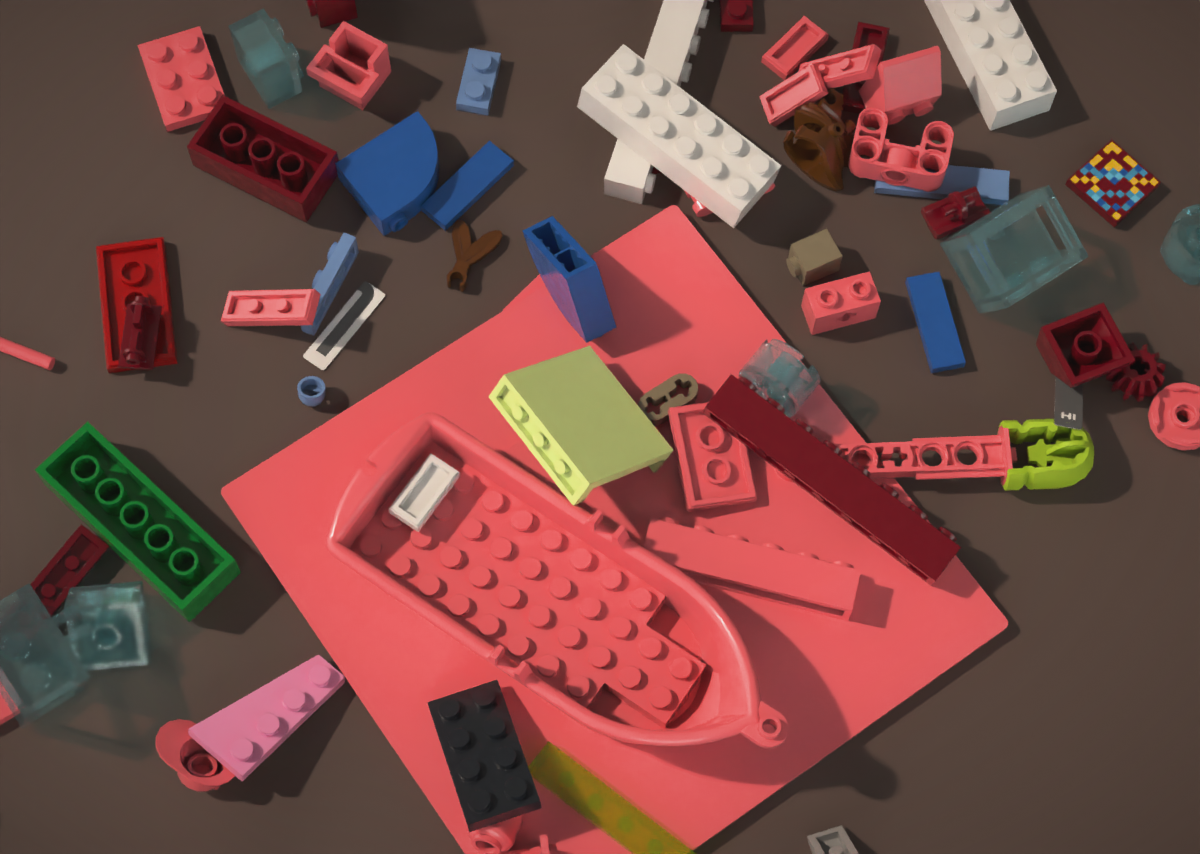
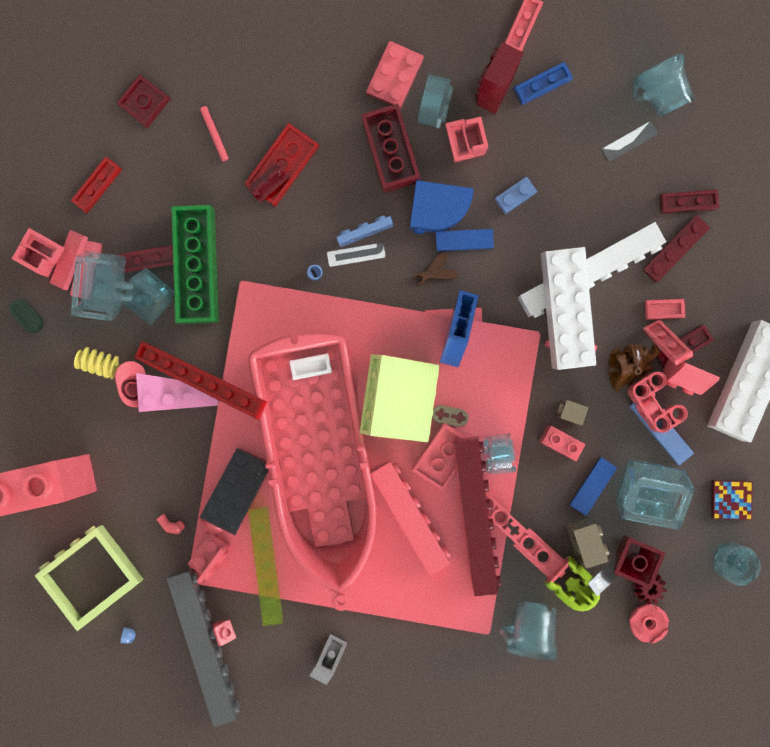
camera: 50 degrees right, 20 degrees up
(116, 777) = (95, 363): none -> light yellow piece
(271, 307) = (330, 221): coral tile -> none
(289, 649) = (201, 380): none -> red tile
(793, 92) = (639, 333): coral tile -> none
(954, 212) = (650, 451): dark red hips -> none
(1000, 384) = (587, 543): none -> dark tan brick
(1058, 555) = (532, 632): none -> clear light blue piece

